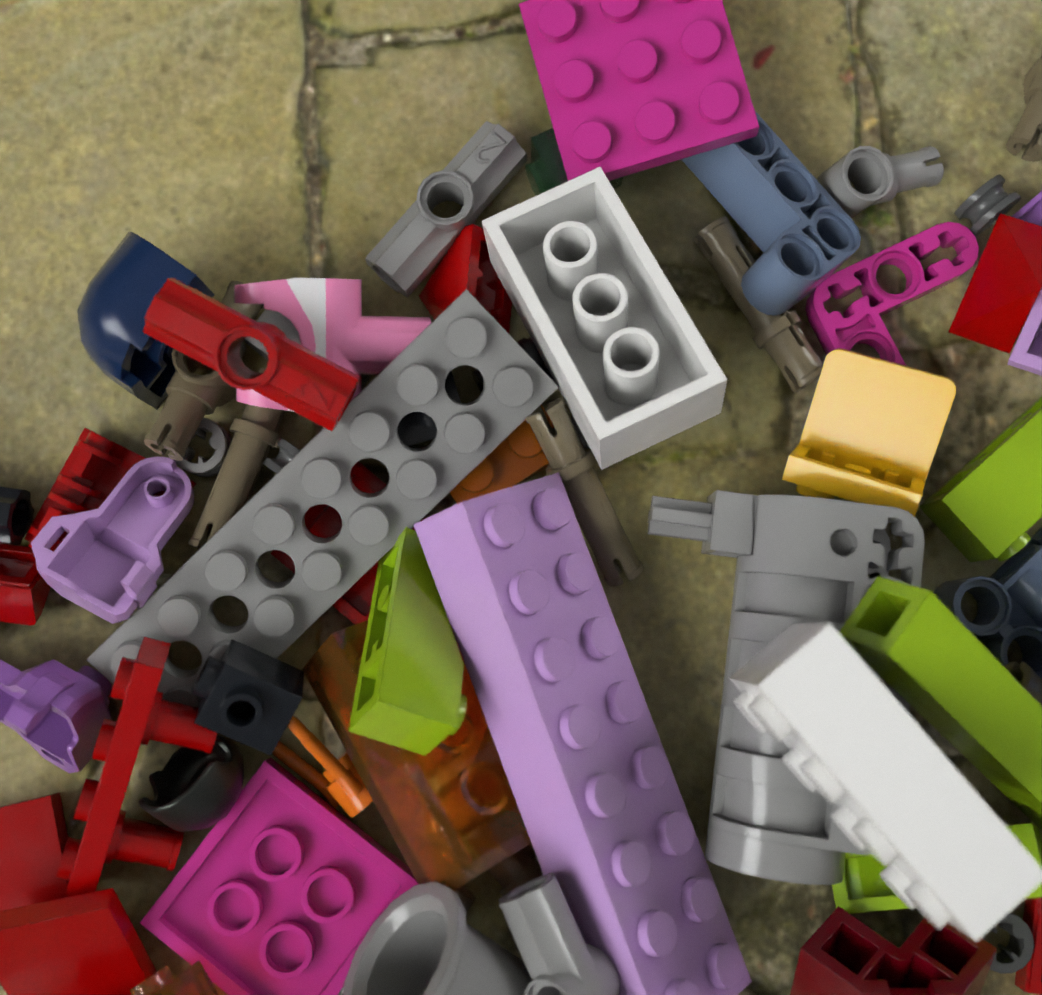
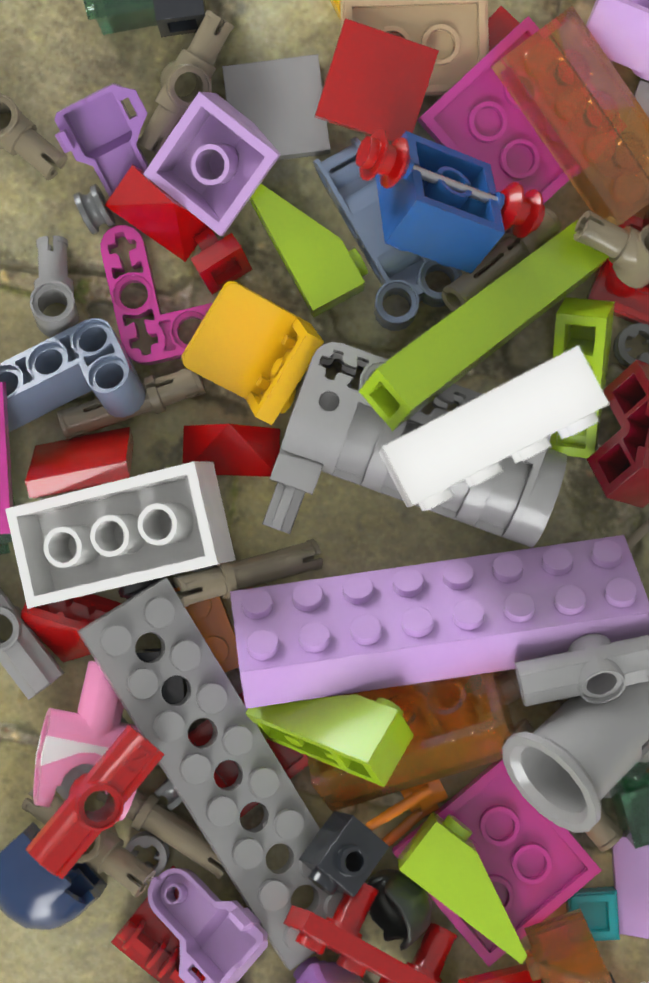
camera: 75 degrees left, 5 degrees up
(252, 850) = (450, 870): none -> lime slope
(674, 249) = (80, 462): none -> red tile
(736, 444) = (233, 448): none -> red slope
(972, 368) = (219, 260): none -> red tile

